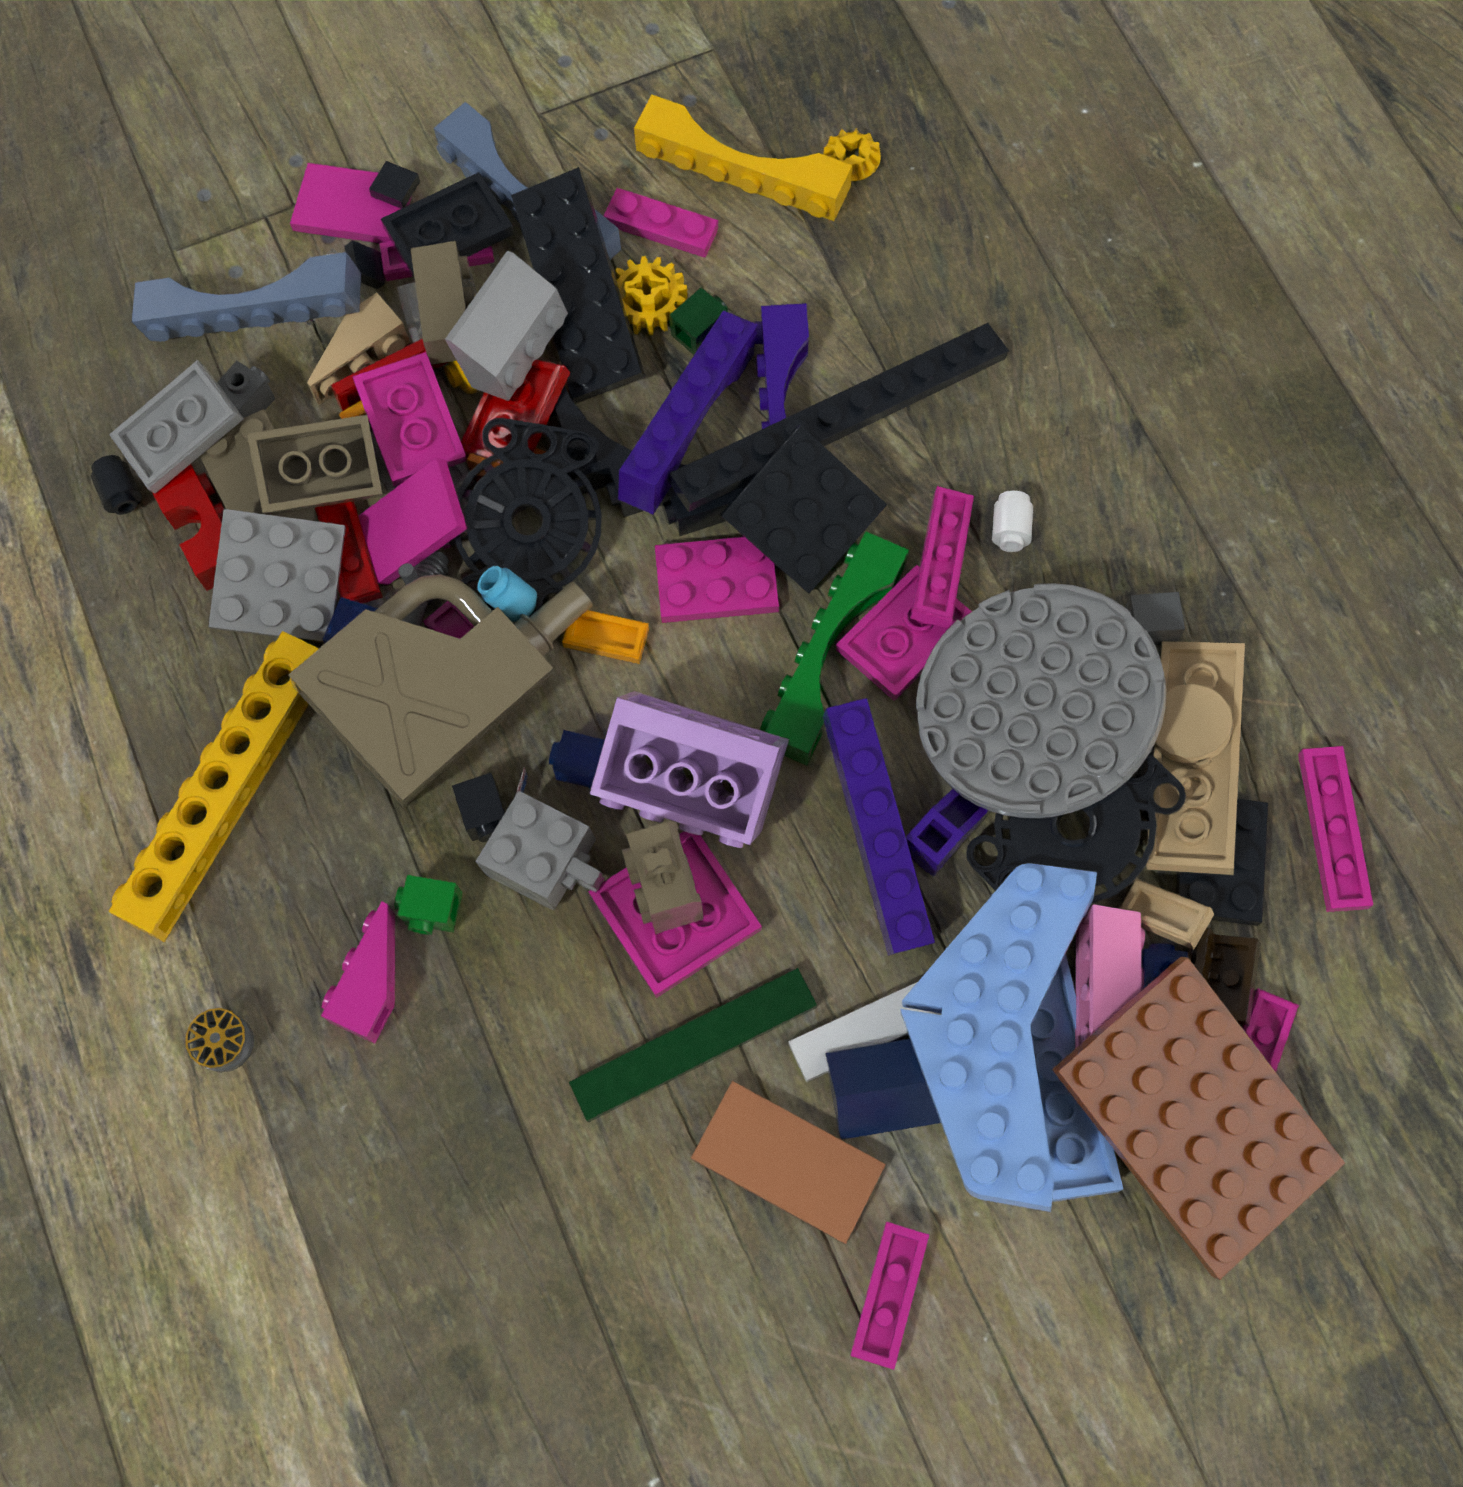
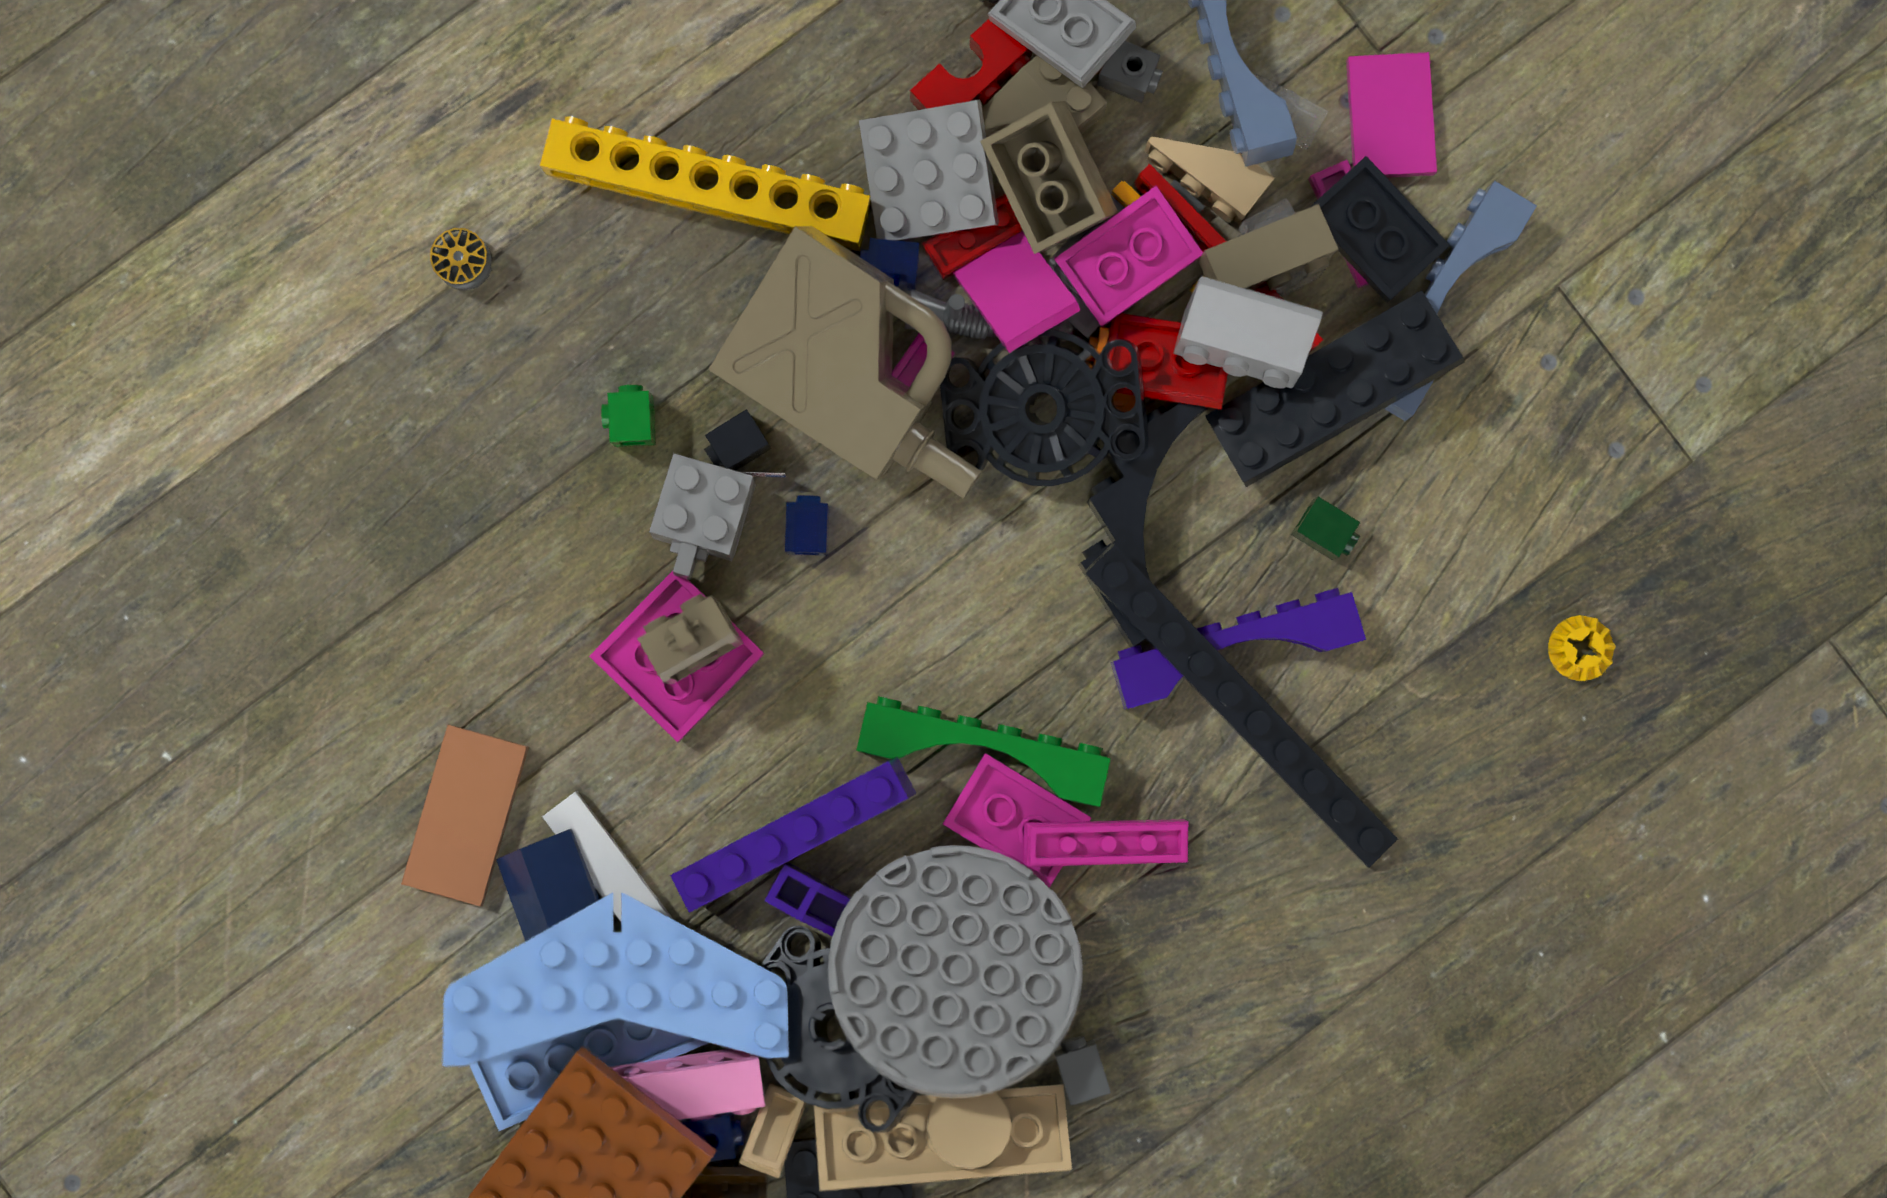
camera: 75 degrees right, 15 degrees up
(367, 987) = (538, 382): dark pink slope -> none
(368, 262) = (1314, 152): black tile -> none
(394, 184) = (1418, 156): black tile -> none
(507, 591) = (952, 411): medium azure brick -> none
(607, 636) = (948, 523): light orange tile -> none
(650, 293) = (1352, 480): yellow gear -> none
(661, 222) = (1446, 456): dark pink plate -> none
(665, 441) = (1206, 543): dark purple arch -> none
(692, 740) = (810, 637): lavender brick -> none
(692, 1045) = (554, 702): dark green tile -> none
(714, 580) = (1036, 614): dark pink plate -> none
(803, 509) = (1117, 689): black plate -> none
(807, 182) = (1528, 610): yellow arch -> none
(889, 1295) = (364, 933): dark pink plate -> none
(1012, 521) = (1164, 908): white brick -> none

